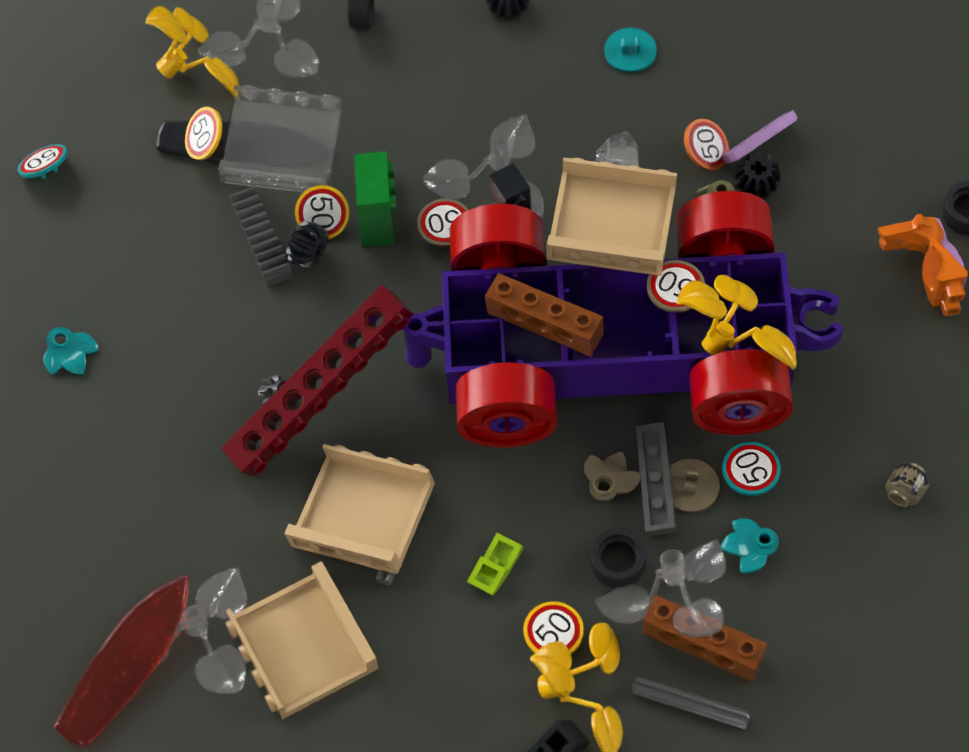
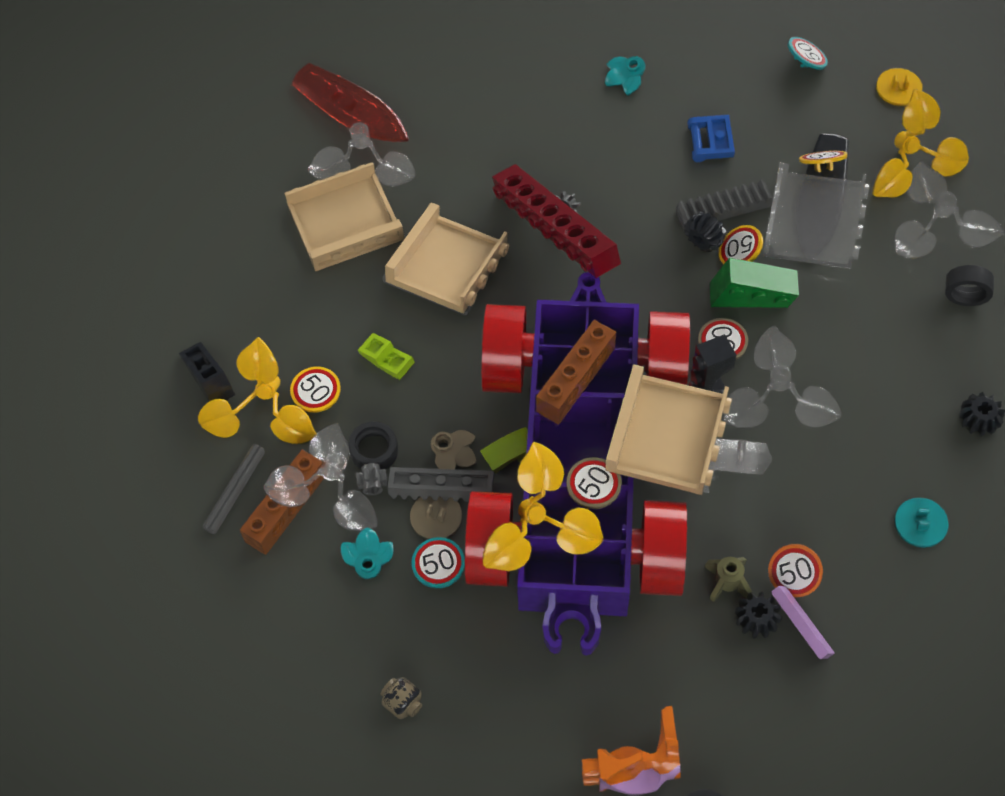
camera: 95 degrees right, 0 degrees up
(84, 77) = (897, 86): none -> yellow piece
(165, 245) = (718, 134): none -> blue plate
(604, 418) = (506, 450): none -> lime slope
(659, 543) = (371, 479): none -> dark grey gear

